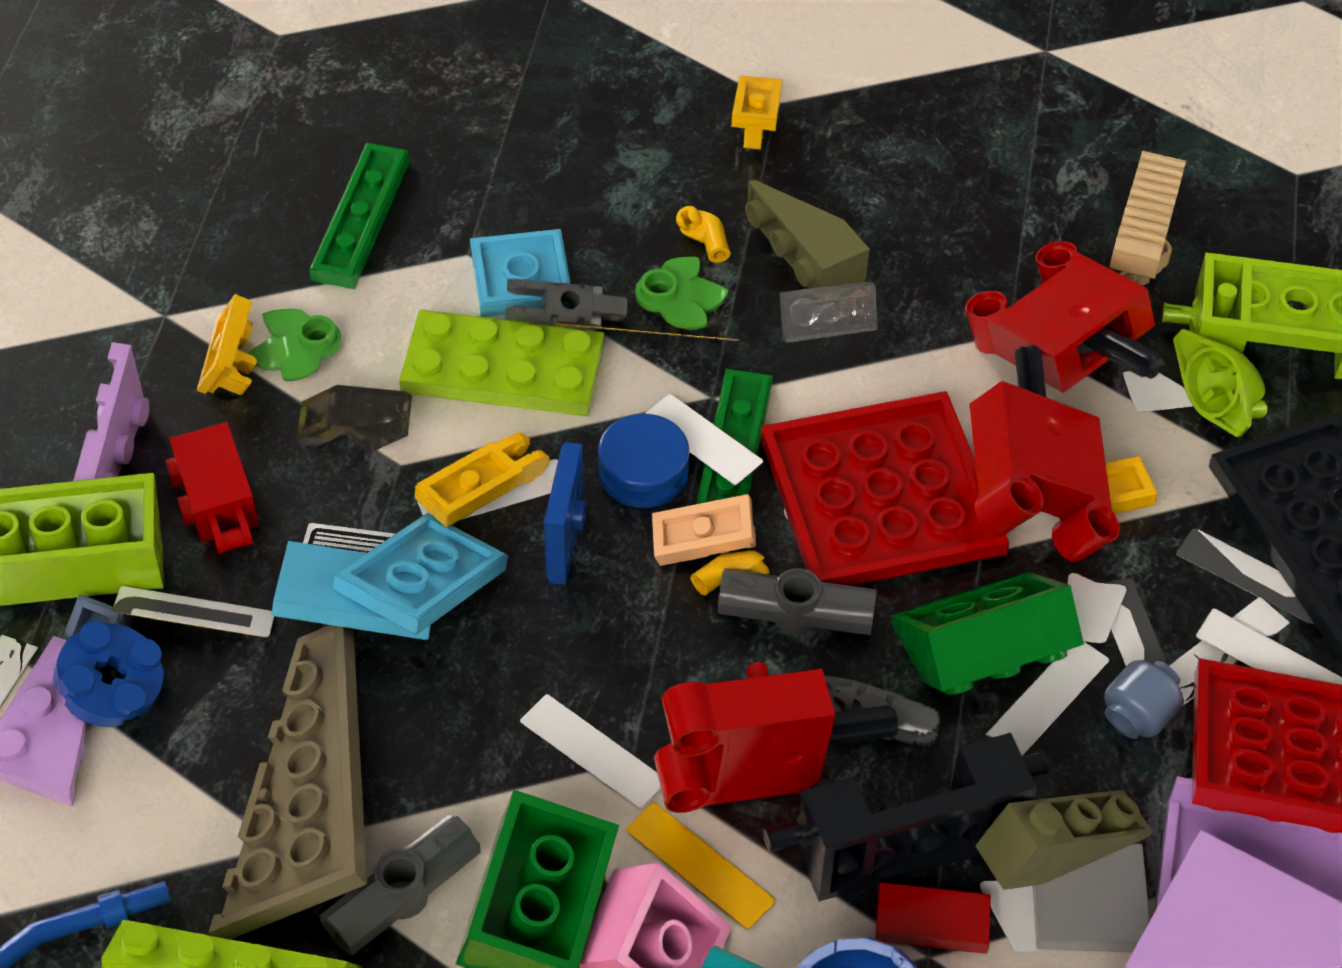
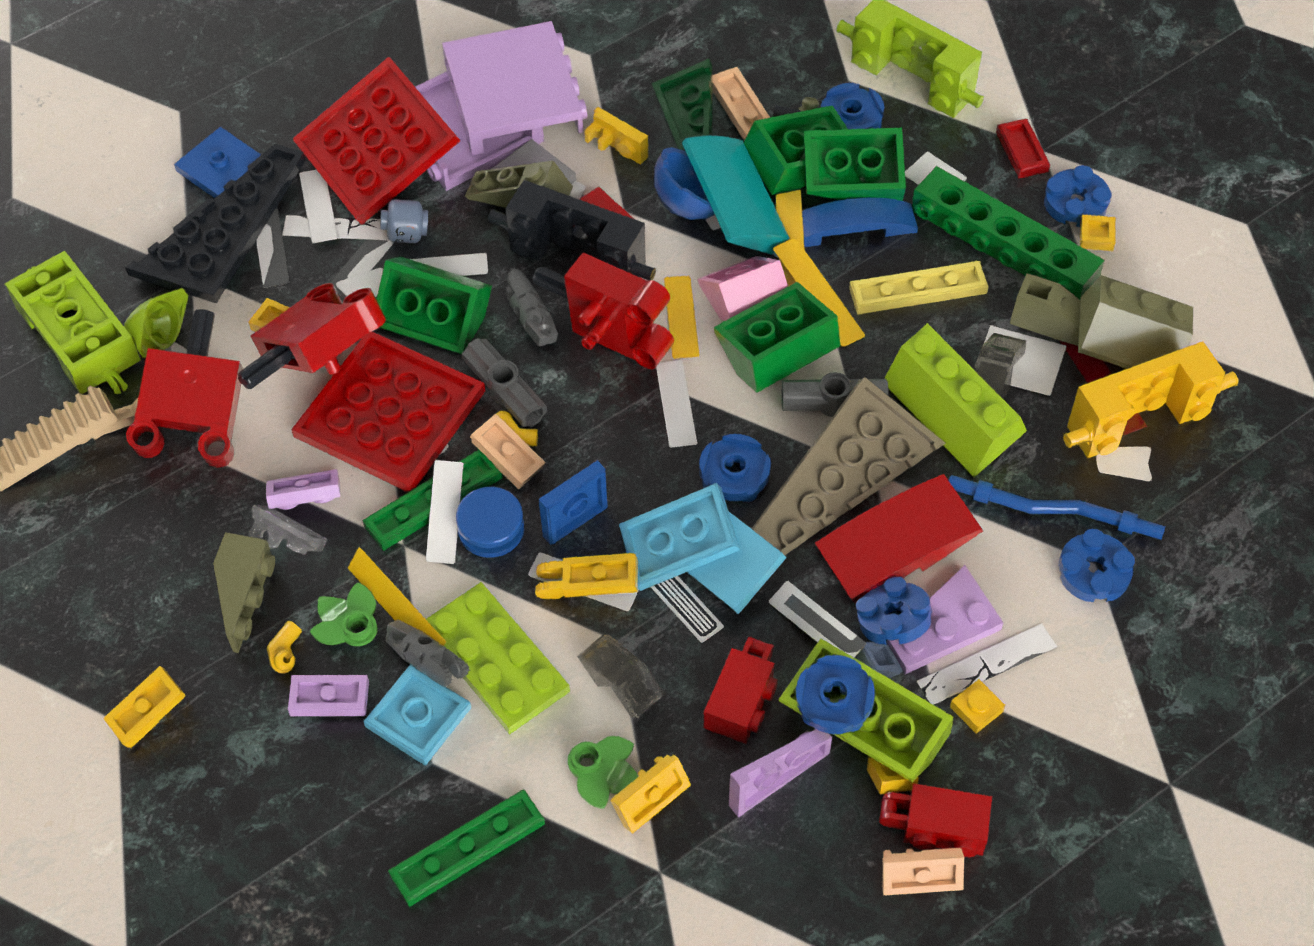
camera: 135 degrees left, 5 degrees up
(78, 517) = (832, 717): none -> blue plate
(169, 766) = (899, 536): none -> red slope
(441, 737) = (740, 449): none -> blue plate
(615, 223) = (328, 695): none -> lavender plate
(862, 354) = (300, 489): none -> lavender plate

